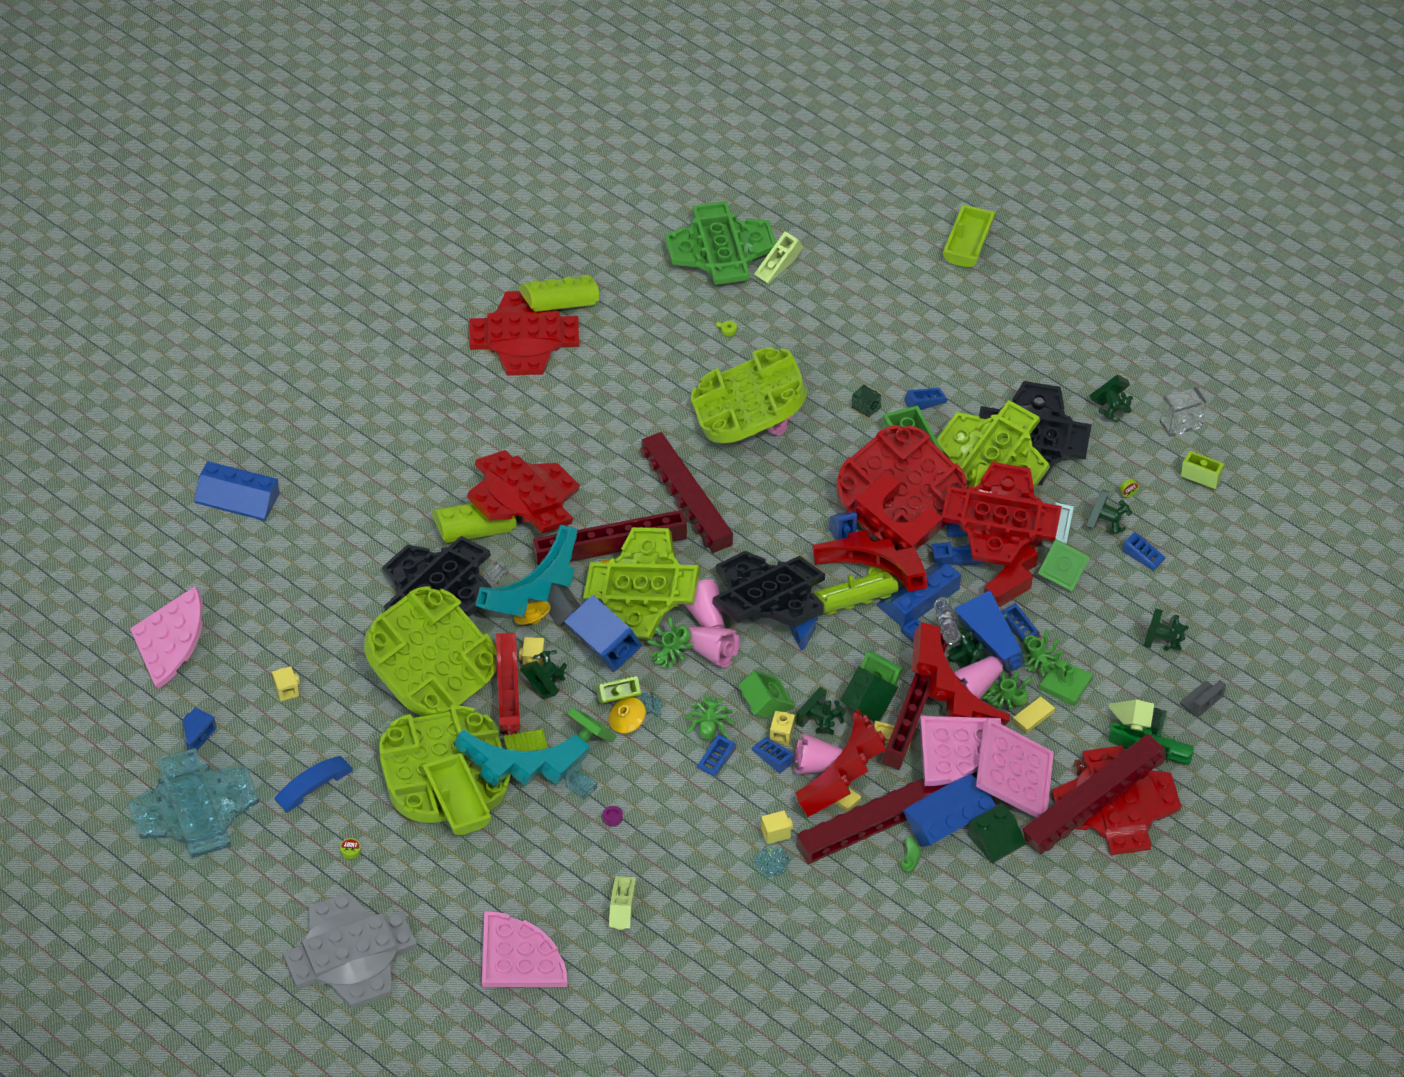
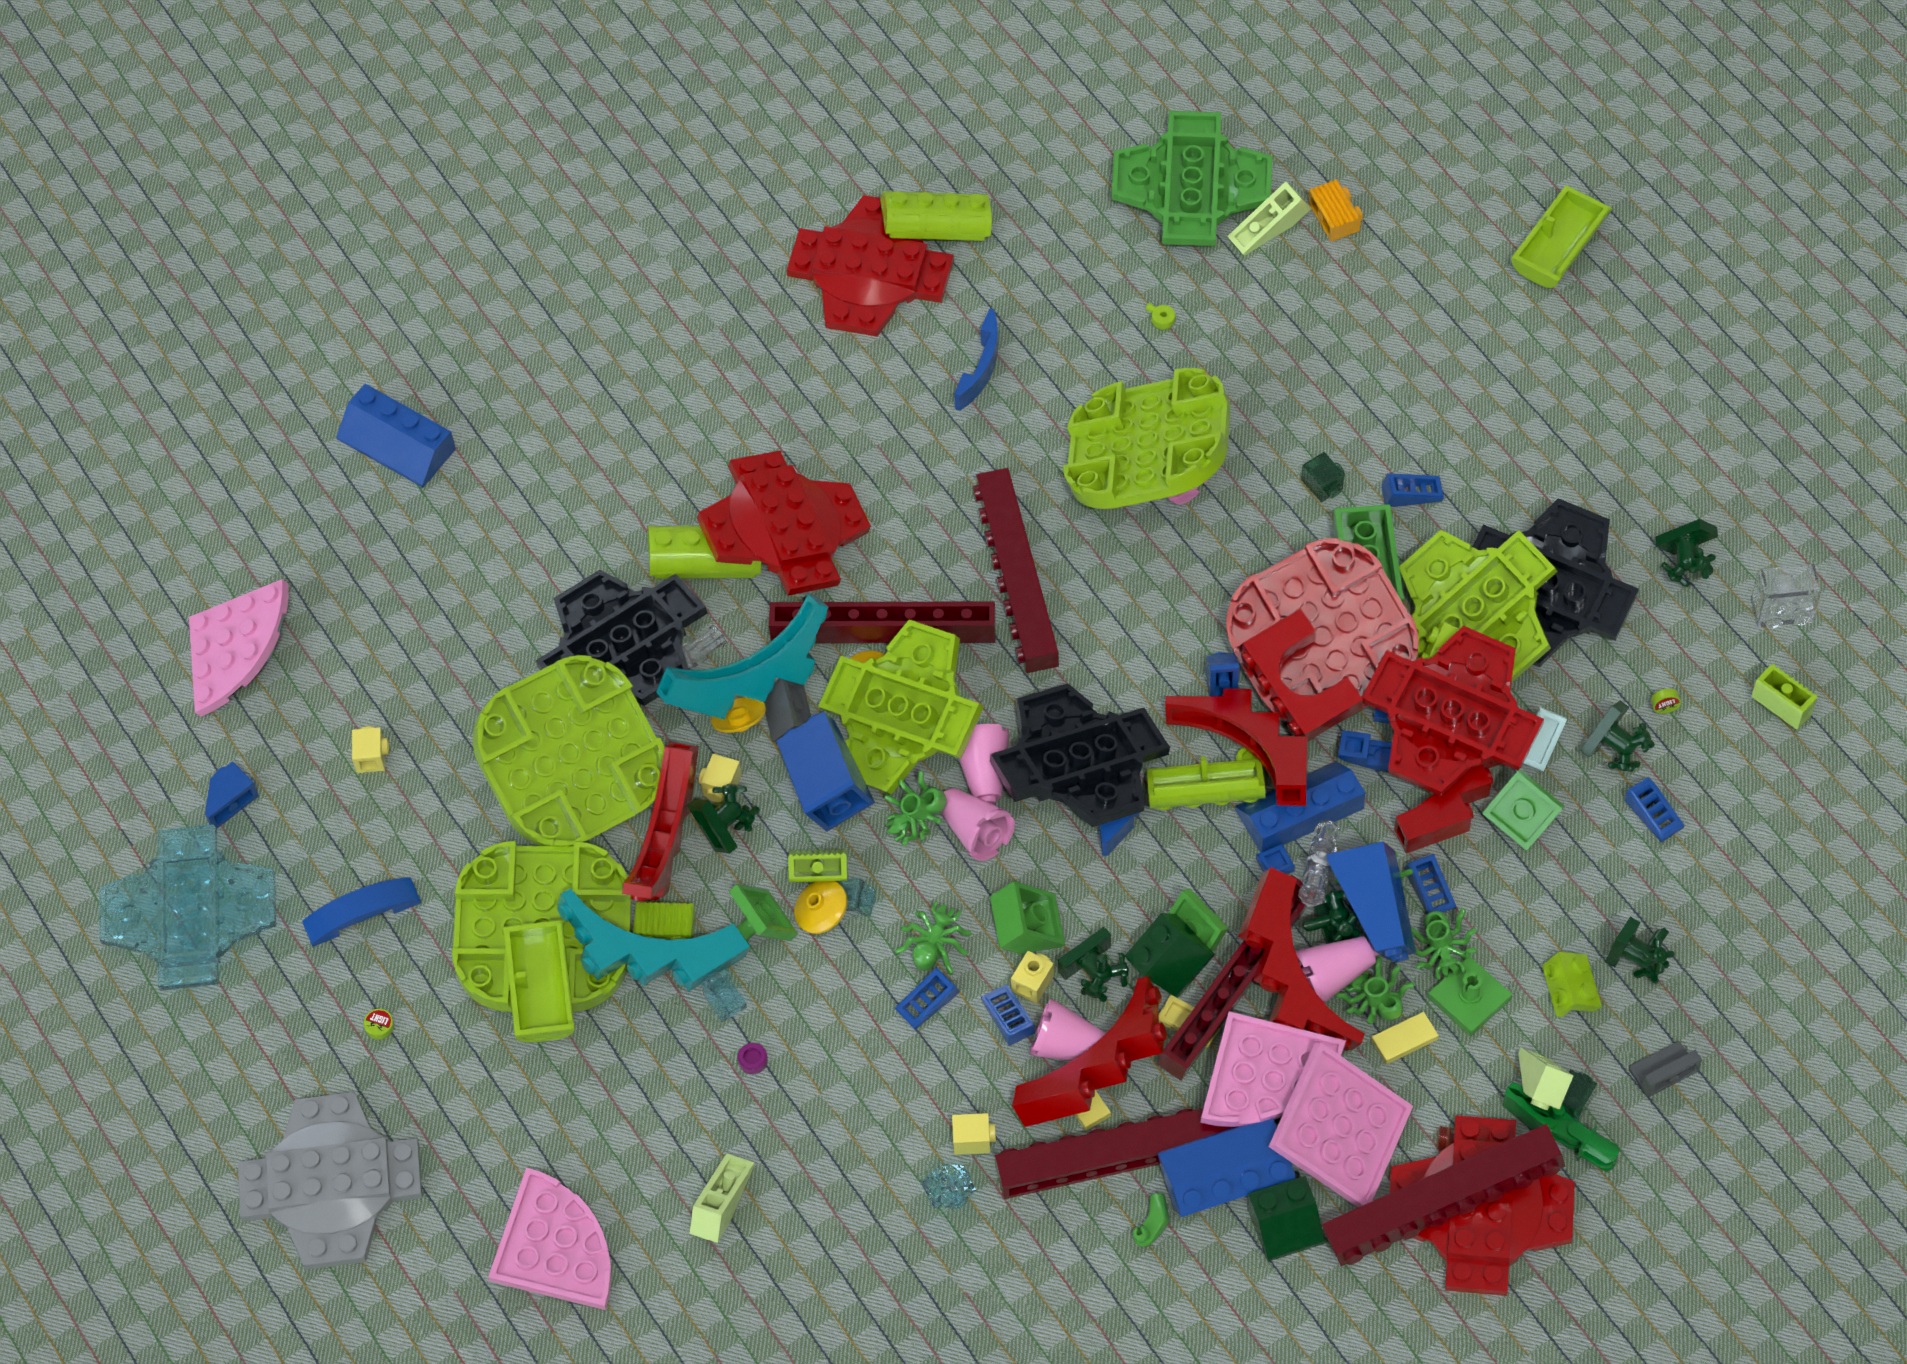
camera: 20 degrees right, 10 degrees up
(619, 388) = (972, 385): none -> blue slope
(819, 246) = (1335, 210): none -> light orange brick
(1127, 661) = (1571, 983): none -> lime bracket

